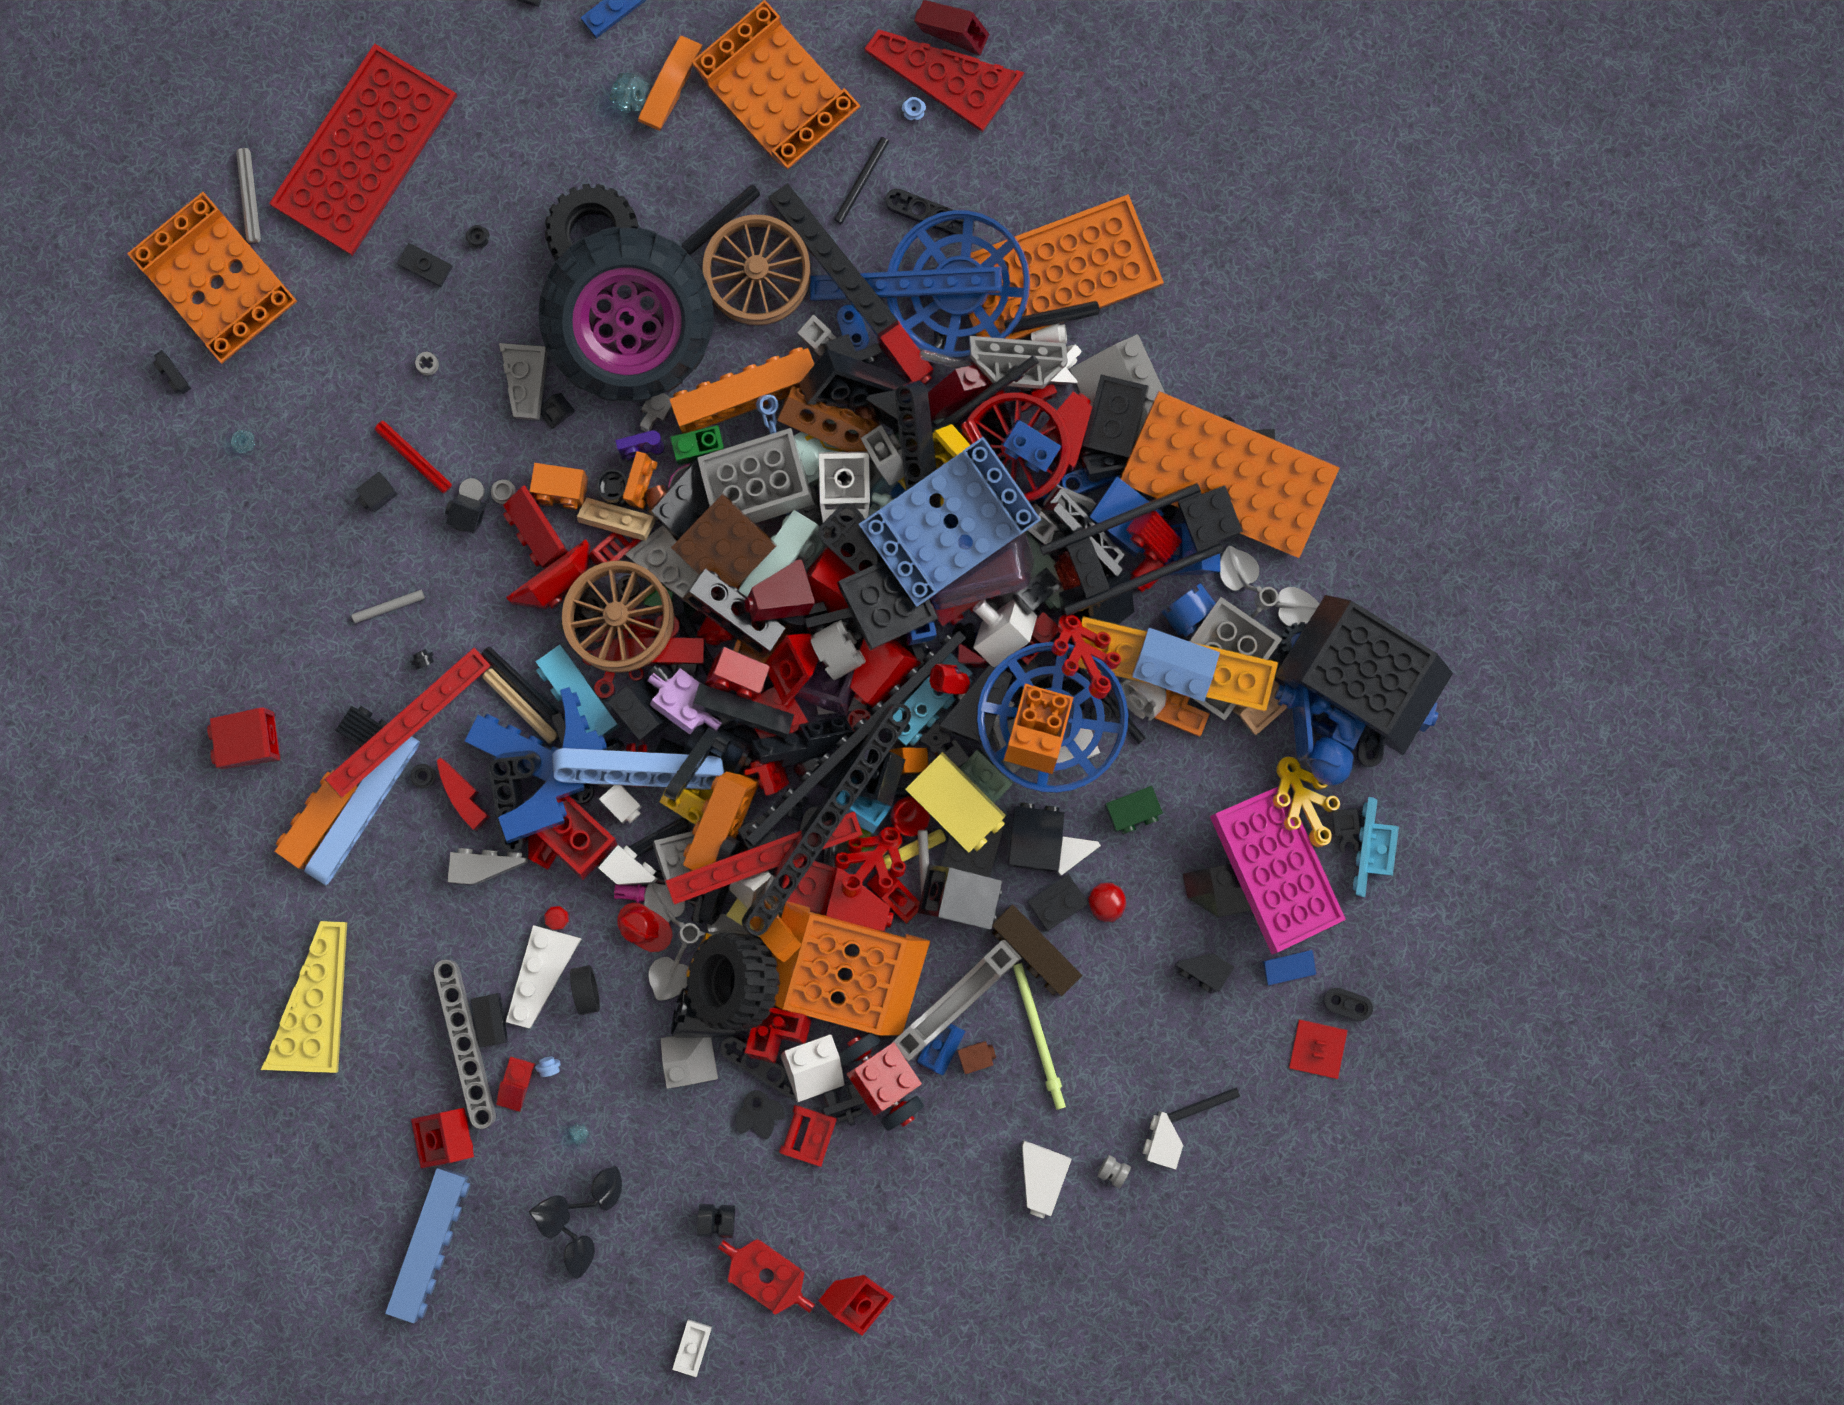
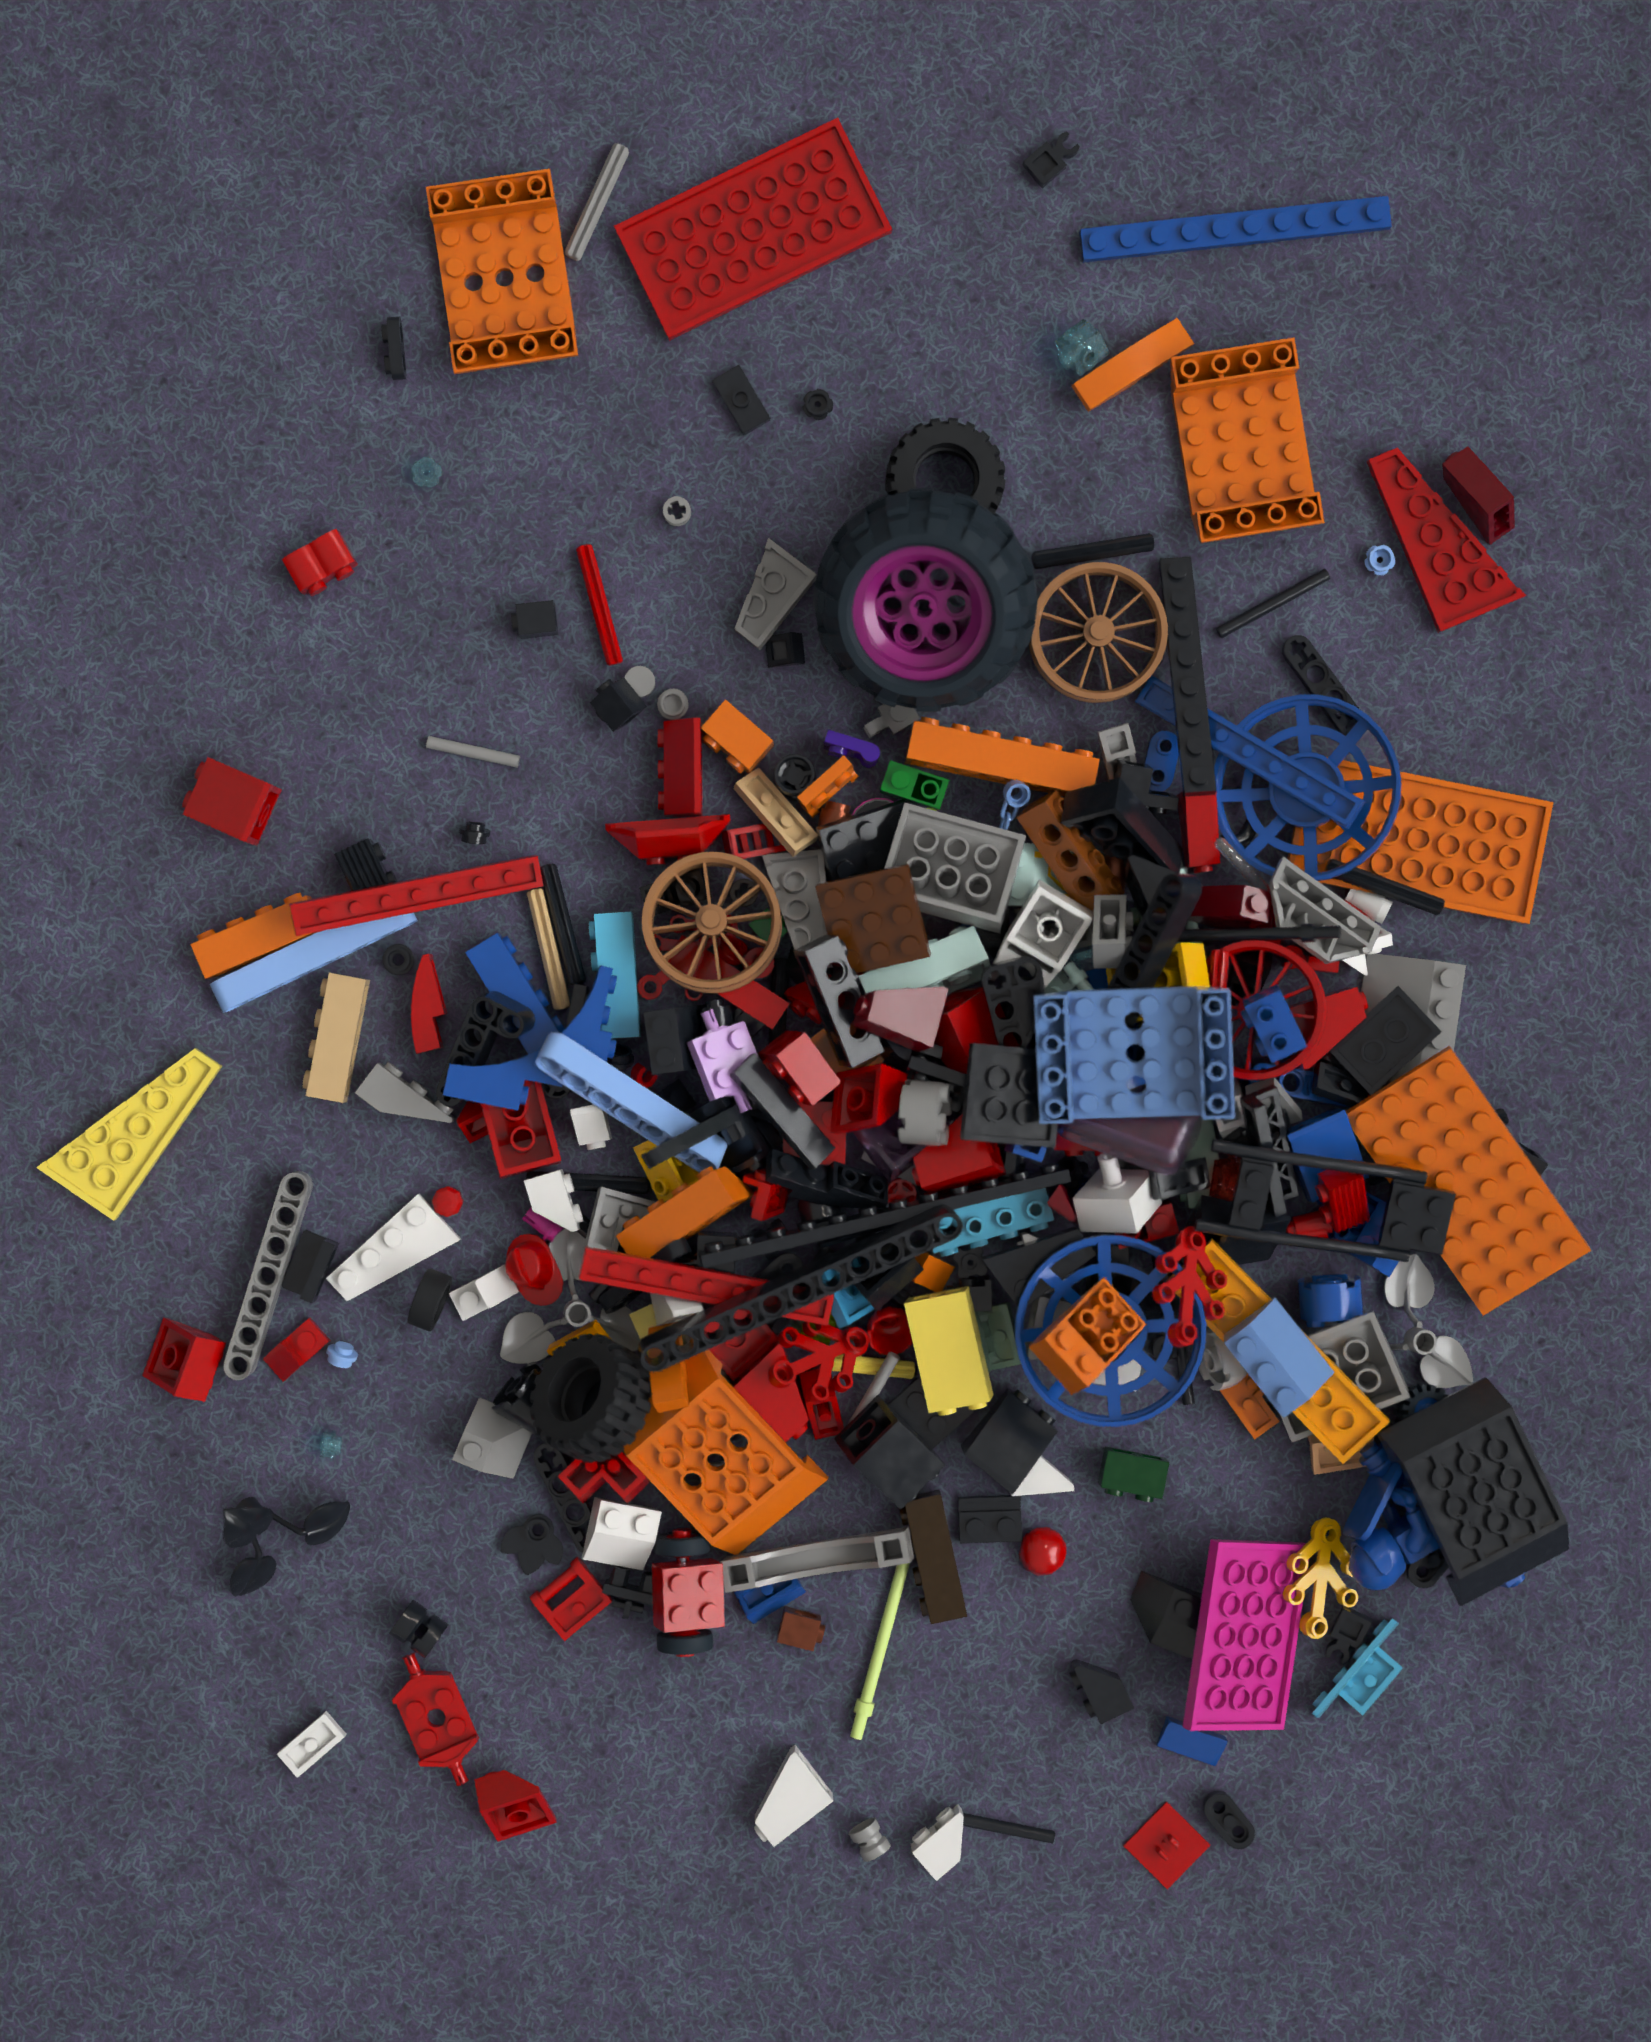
camera: 30 degrees right, 5 degrees up
(207, 544) = (320, 562): none -> red brick
(413, 853) = (337, 1037): none -> tan brick
(427, 1245) = (99, 1462): medium blue brick -> none
(619, 964) = (483, 1293): none -> white slope
(949, 679) = (1024, 1216): red rock -> none

